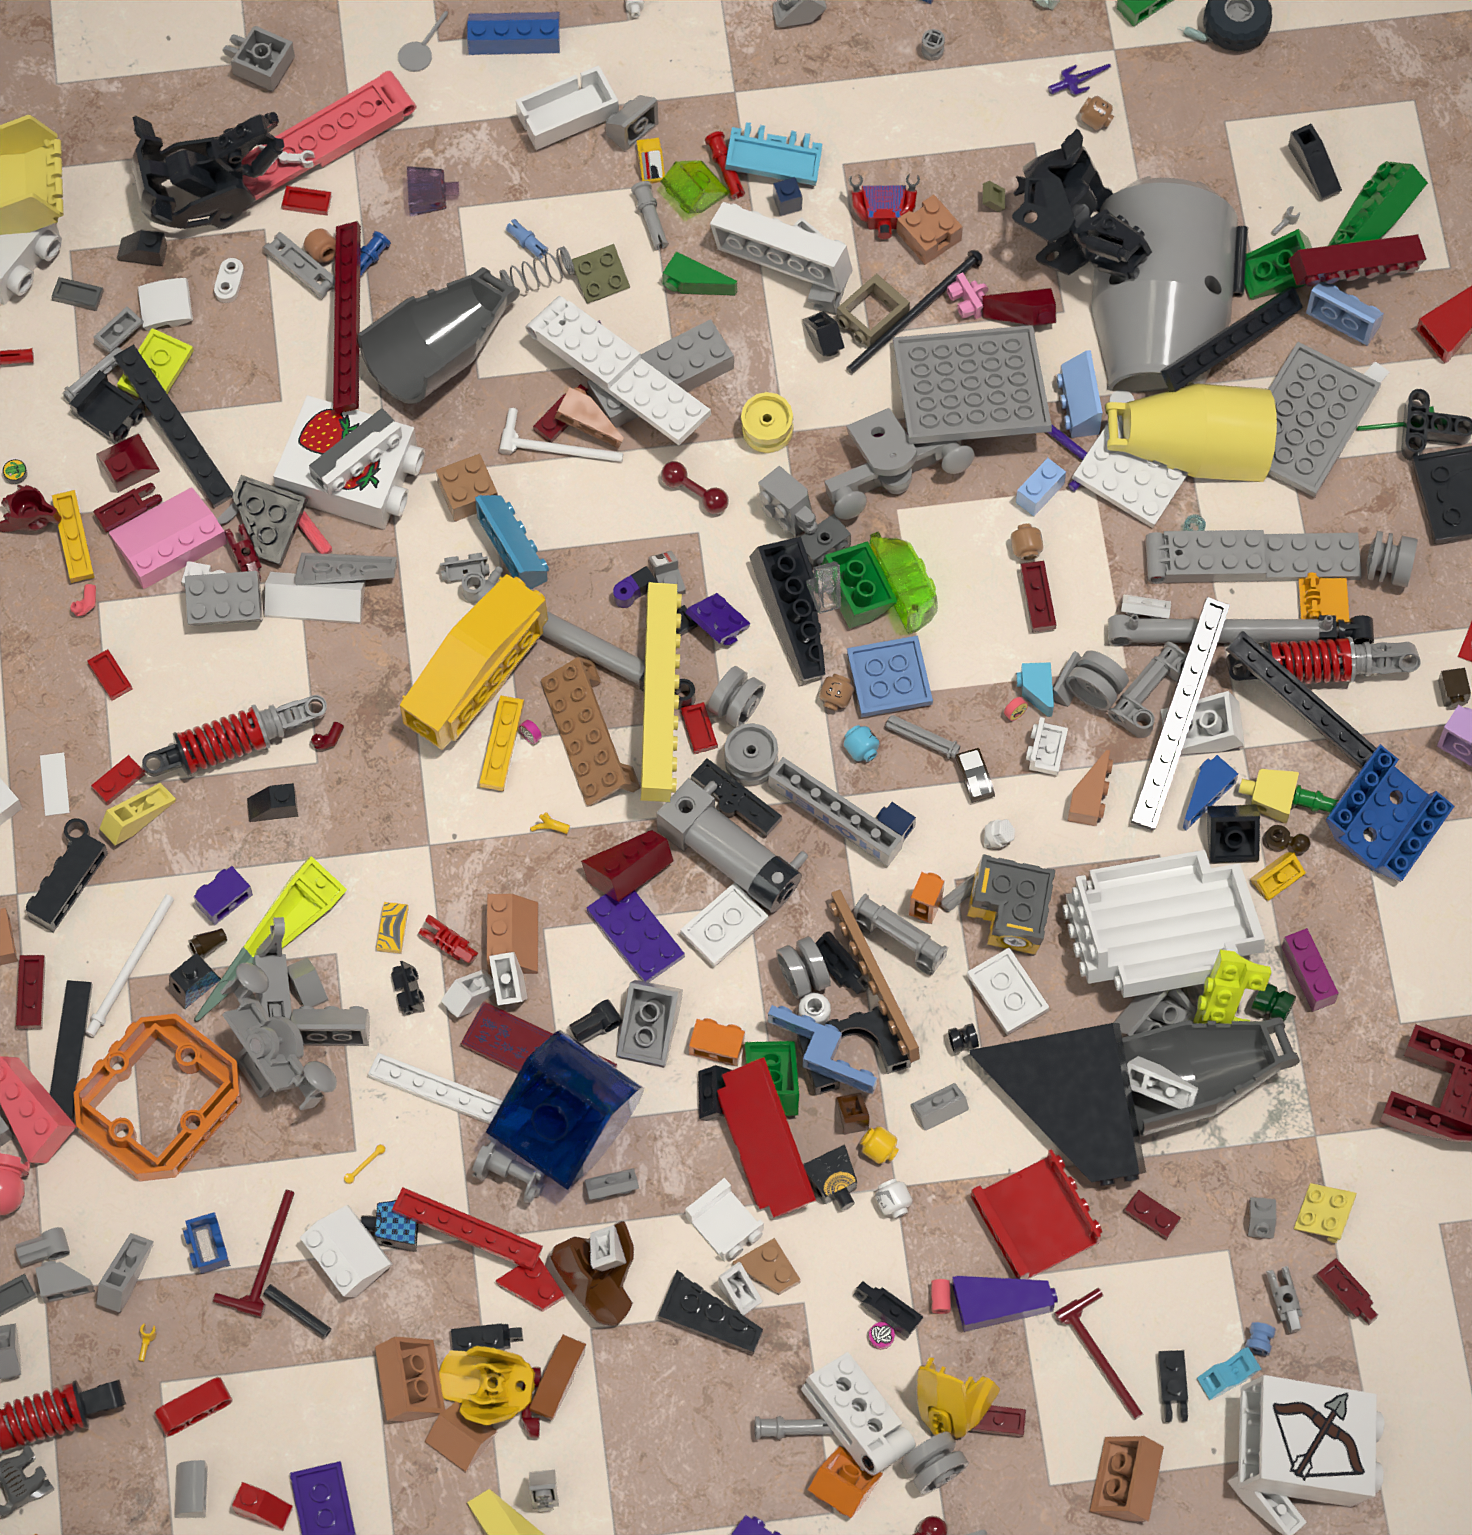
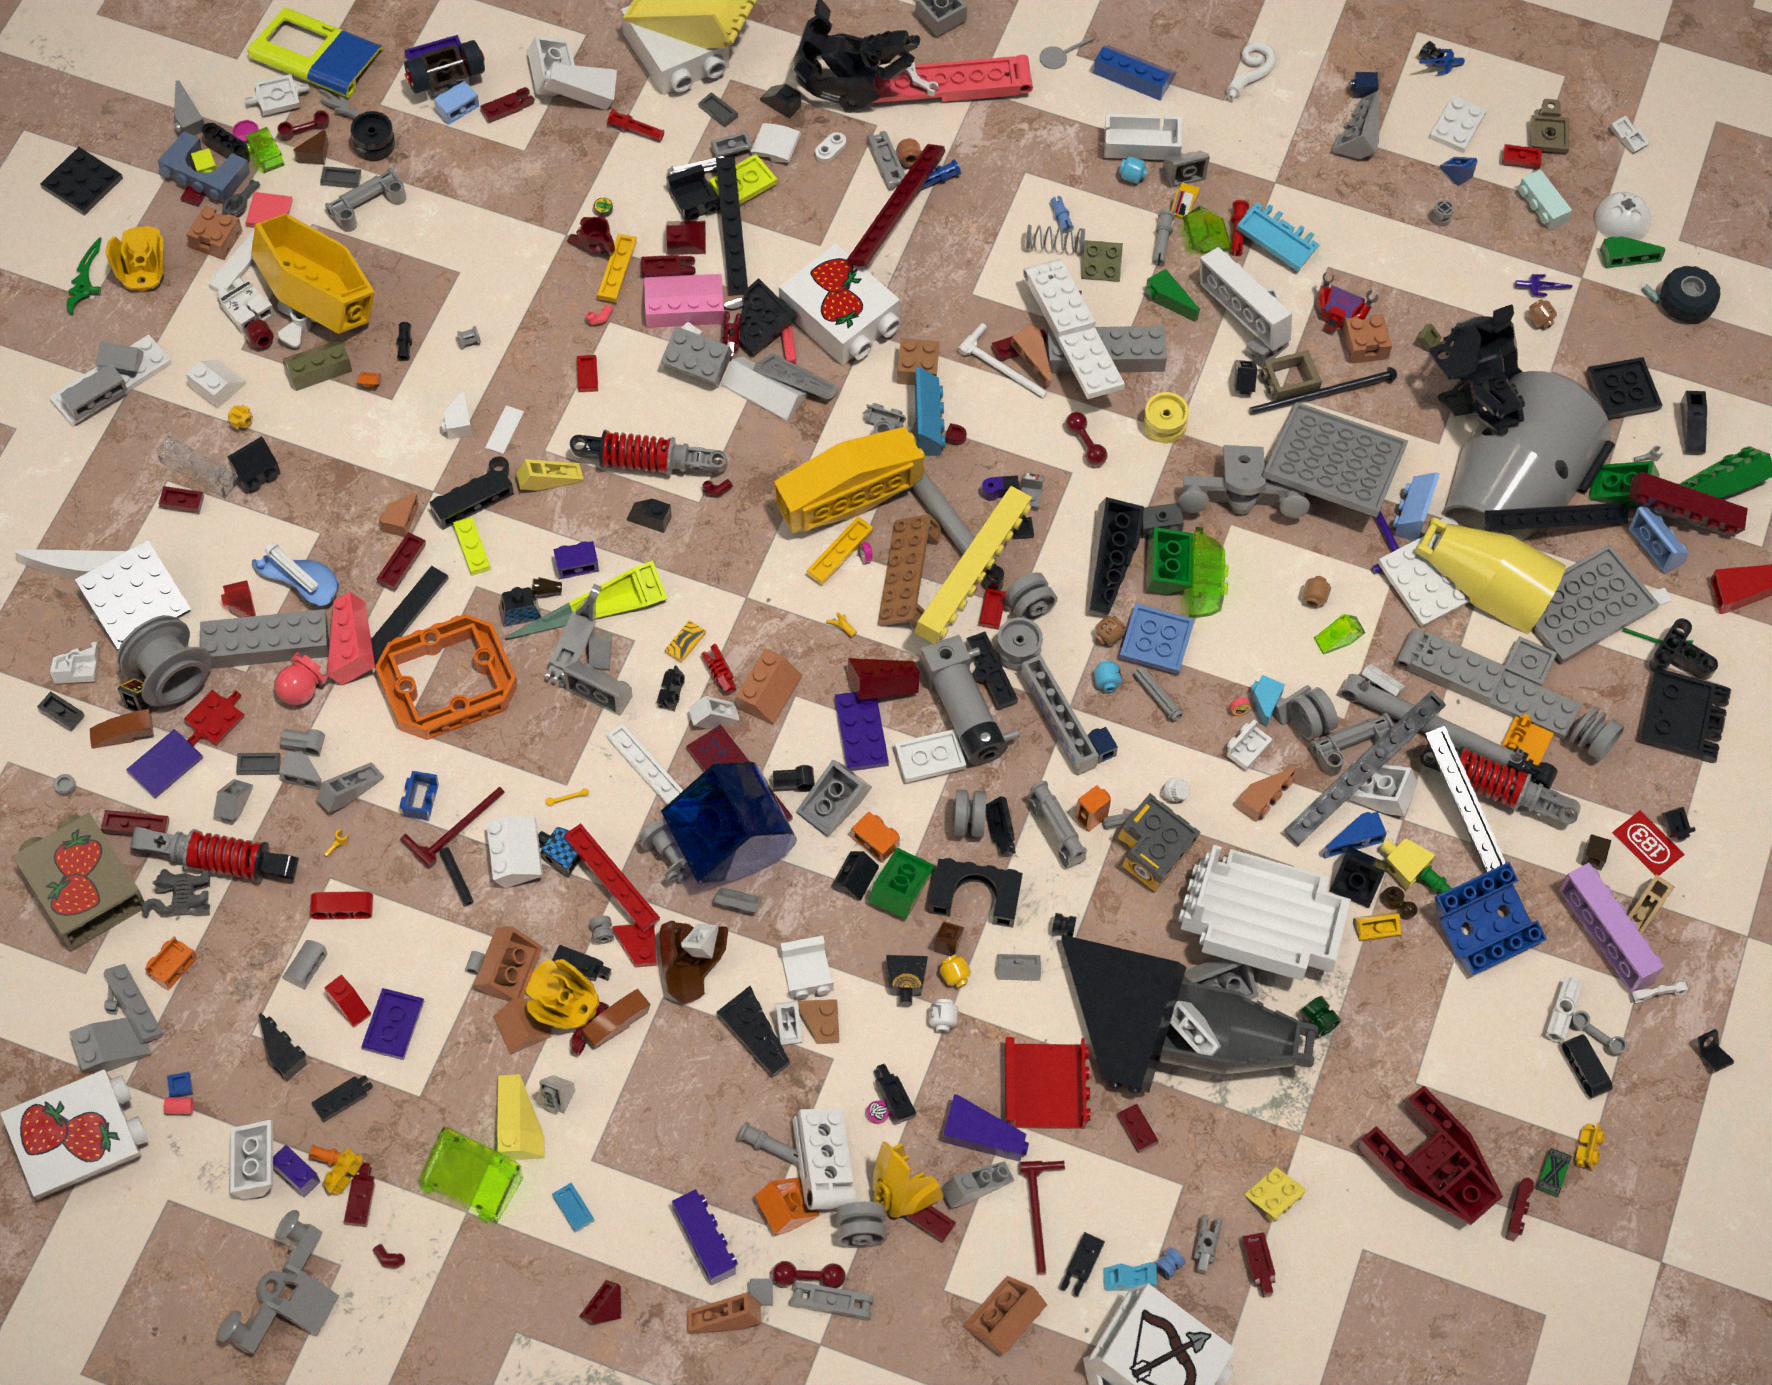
camera: 25 degrees right, 5 degrees down
(97, 935) = (472, 546): none -> neon yellow plate
(99, 1018) = (438, 602): white bar -> none
(118, 780) = (550, 447): red plate -> none
(271, 1043) = (543, 673): light grey piece -> none
(306, 200) = (918, 119): red tile -> none
(356, 451) = (846, 295): piece -> none
(373, 1394) = (474, 962): none -> light grey hinge
(428, 190) = (1008, 149): clear purple torso -> none
(434, 335) = (951, 246): dark grey windscreen -> none
(487, 1290) = (602, 930): none -> light grey wheel
(508, 978) = (745, 714): white slope -> none
(552, 549) = (956, 435): none -> dark red tile
(576, 150) = (1133, 169): none -> medium azure head
(718, 619) = (1050, 537): dark purple piece -> none
(764, 1139) = (868, 922): red slope -> none
(787, 196) = (1272, 269): dark blue brick -> none
(787, 502) = (1147, 477): light grey hinge -> none
(815, 1006) = (961, 848): white head -> none
(822, 1049) = (949, 877): medium blue bracket -> none
(826, 587) = (1142, 550): clear slope -> none
(877, 981) = (1018, 851): medium nougat plate -> none
(940, 1296) = (938, 1105): coral piece -> none
(971, 293) = (1372, 398): bright pink hips -> none
(975, 775) = (1182, 739): slope -> none
(1008, 991) = (1118, 908): white plate -> none
(1021, 307) = (1405, 423): dark red slope -> none
(1024, 1358) = (977, 1183): none -> light grey slope
(1038, 596) = (1303, 634): dark red plate -> none
(1040, 487) = (1349, 557): light blue brick -> none
(1075, 577) = (1339, 634): none -> clear neon green slope
(1194, 519) = (1457, 635): clear light blue bush -> none
(1223, 156) = (1624, 387): none -> black plate
(1226, 987) = (1284, 980): neon yellow bracket -> none
(1262, 1217) = (1222, 1173): light grey bracket -> none
(1283, 511) = (1530, 661): none -> light grey plate
(1310, 970) = (1363, 1006): magenta brick -> none

